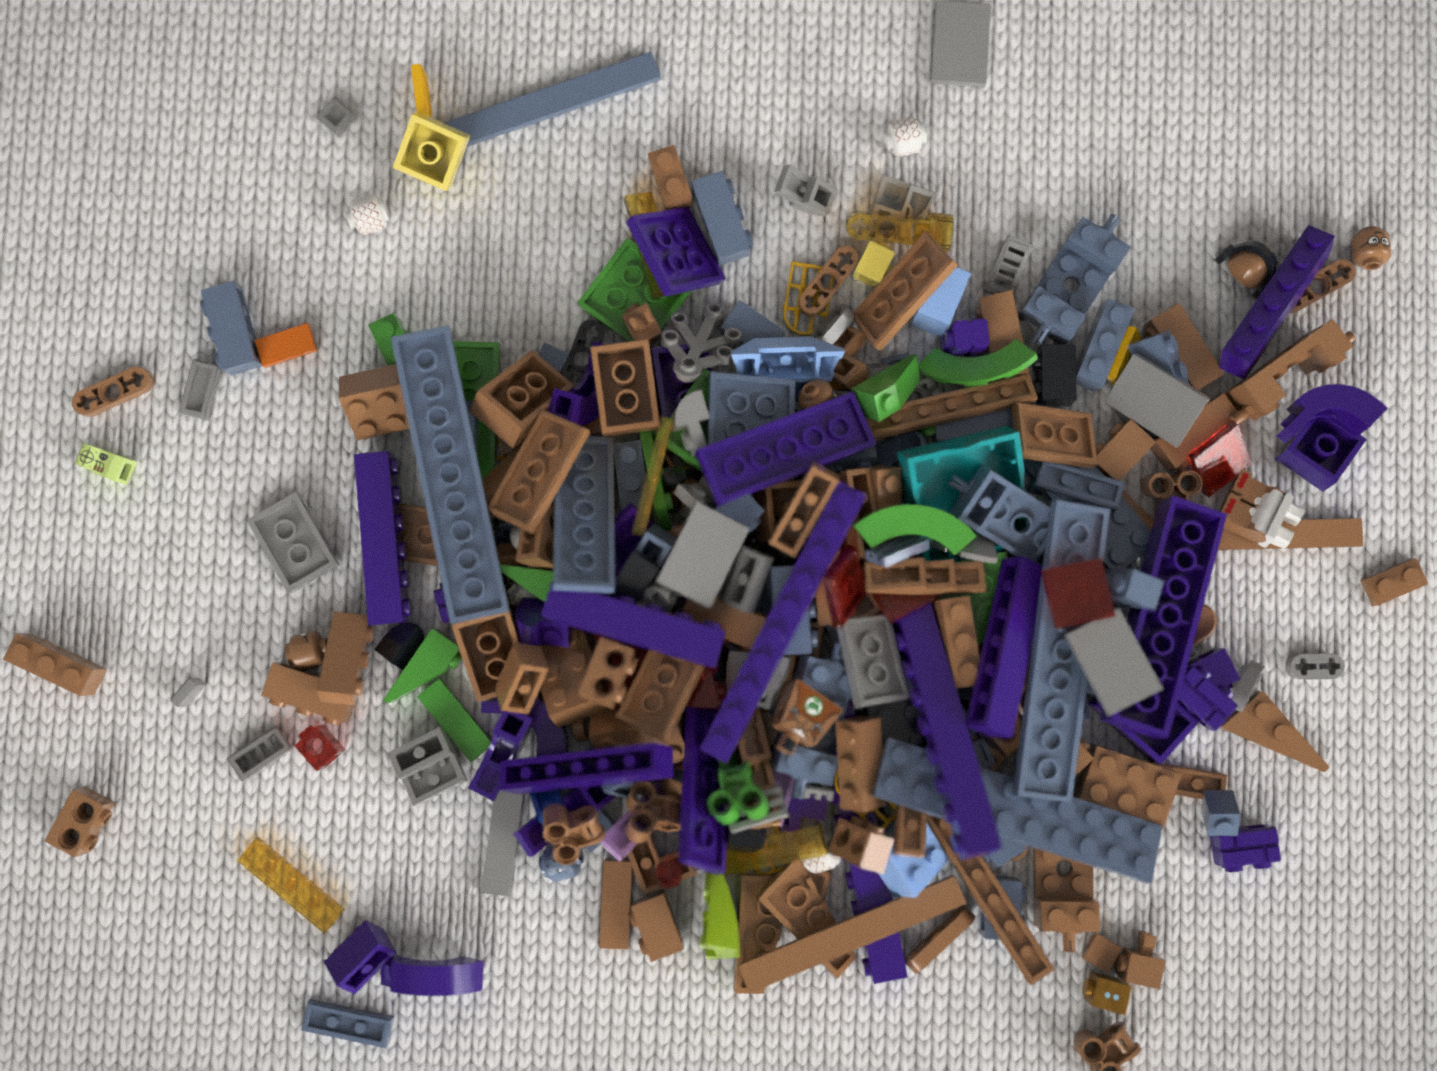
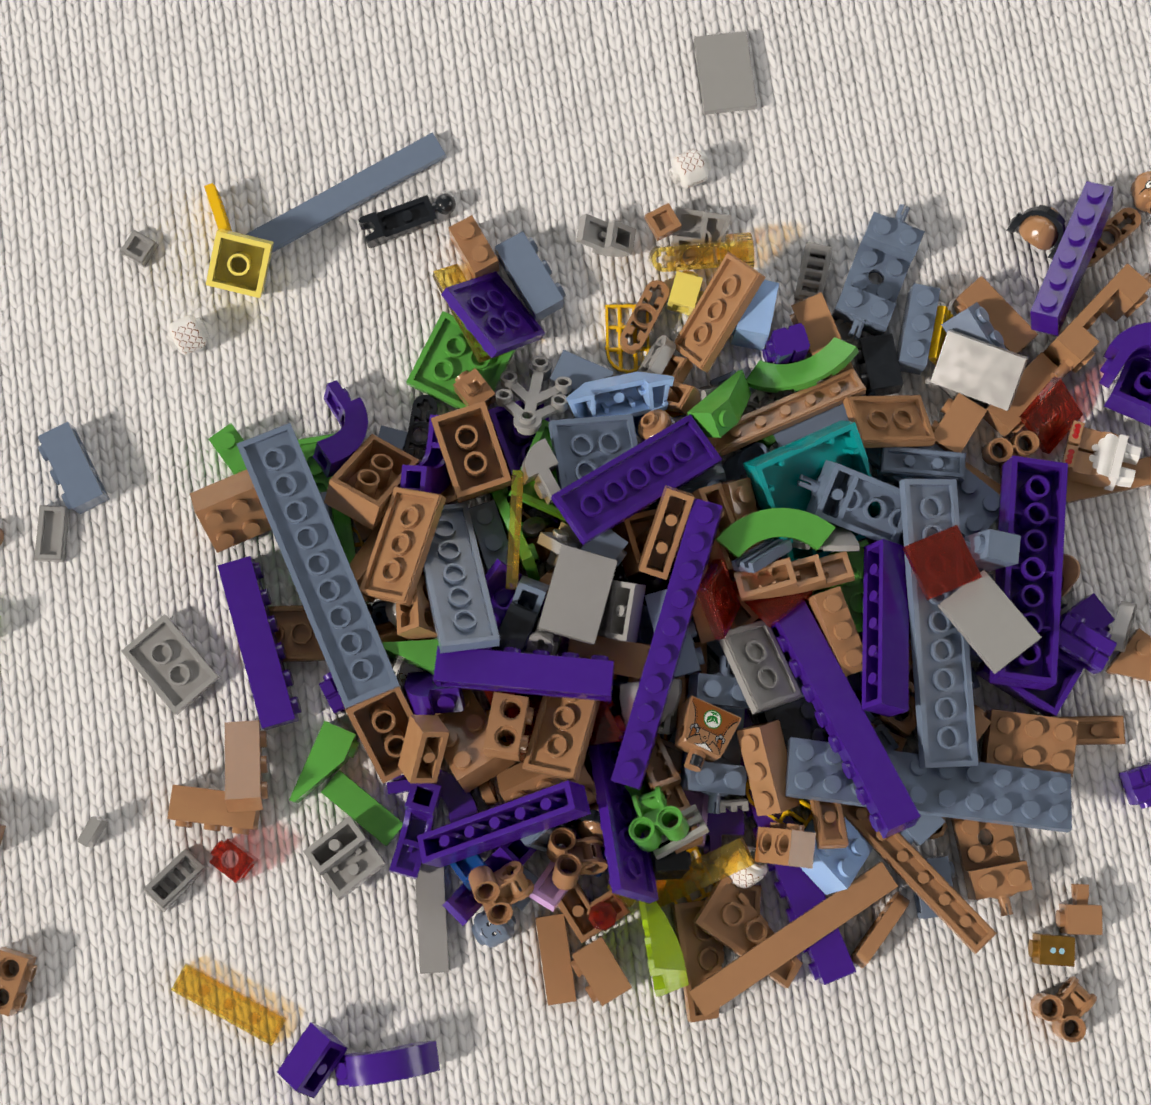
camera: 15 degrees left, 5 degrees down
(286, 345) = (129, 475): orange tile -> none
(306, 650) = (204, 767): medium nougat head -> none
(401, 644) = (295, 743): black brick -> none
(492, 360) = (353, 419): none -> dark purple arch
(606, 135) = (404, 218): none -> black plate
(866, 187) = (663, 221): none -> medium nougat tile
(1101, 952) = (1039, 912): medium nougat tile -> none
(1220, 813) = (1124, 752): sand blue brick -> none

